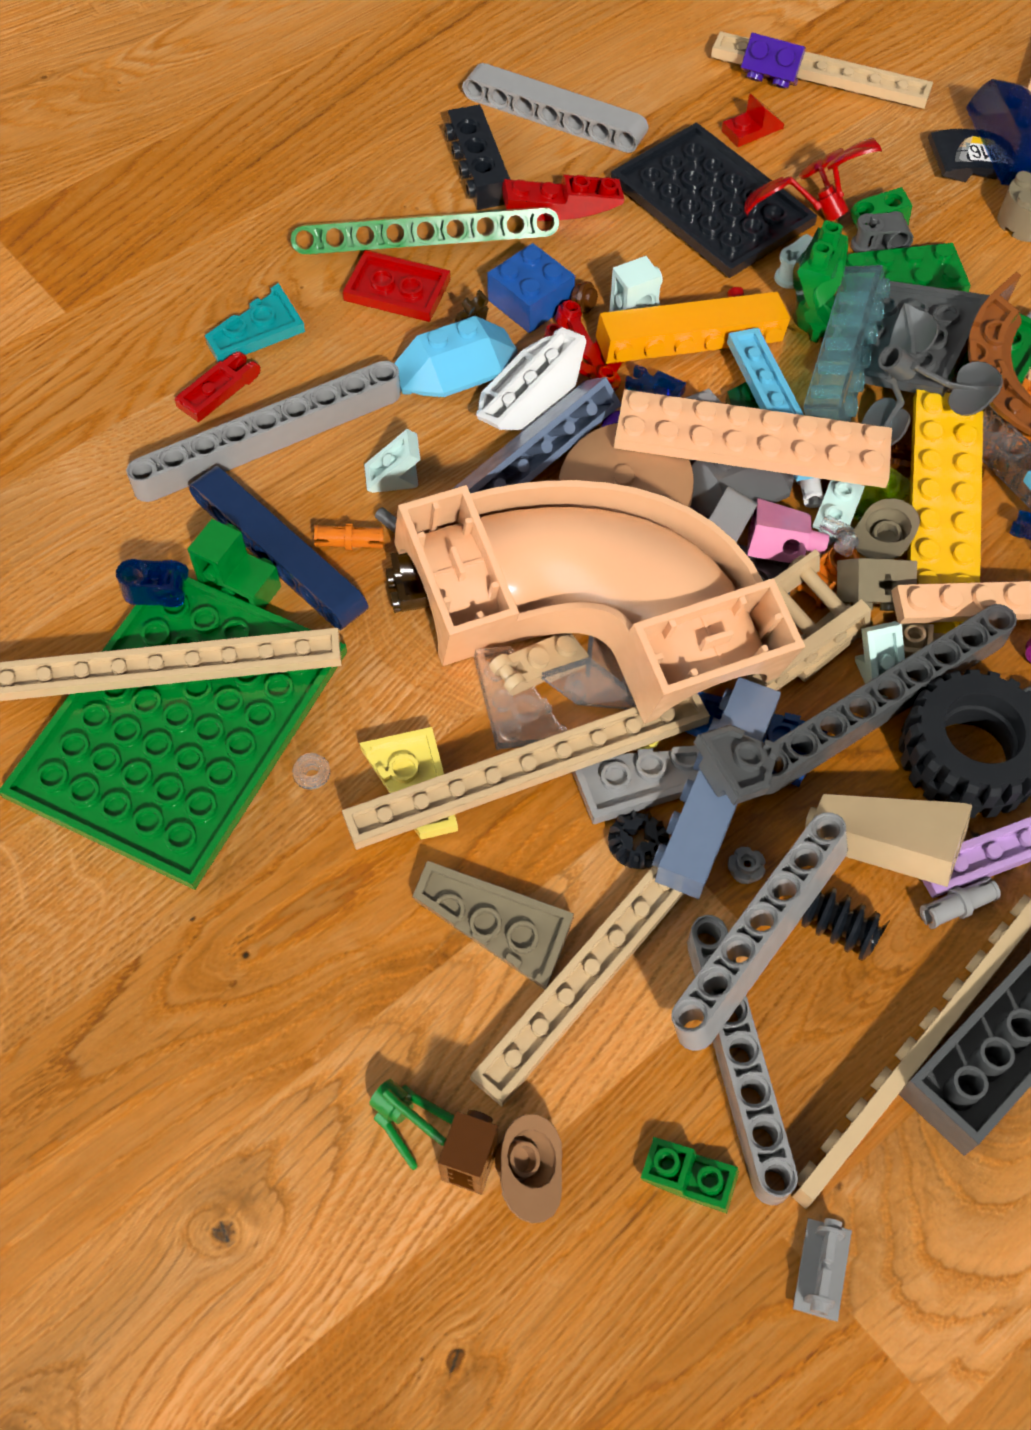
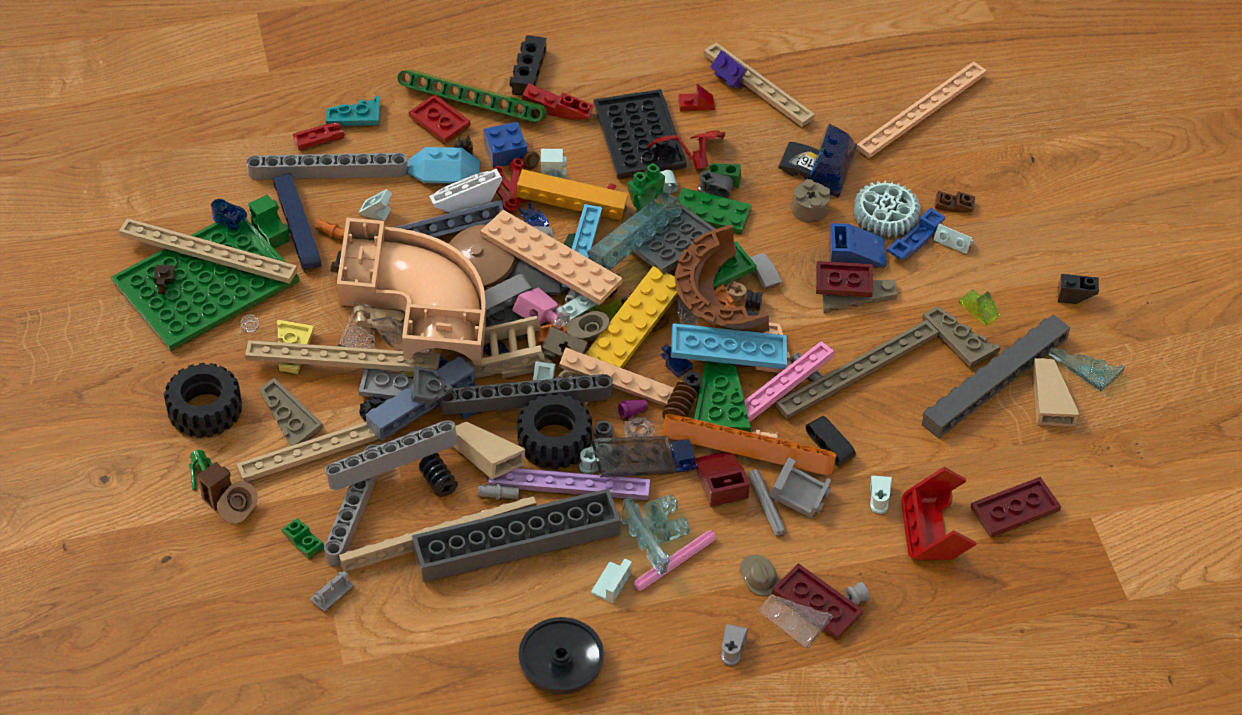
camera: 25 degrees right, 10 degrees down
(101, 749) = (162, 276): none -> dark brown plate
(319, 922) = (199, 381): none -> black tyre
(556, 107) = (591, 53): light grey beam -> none
(912, 335) = (642, 249): dark grey plant -> none

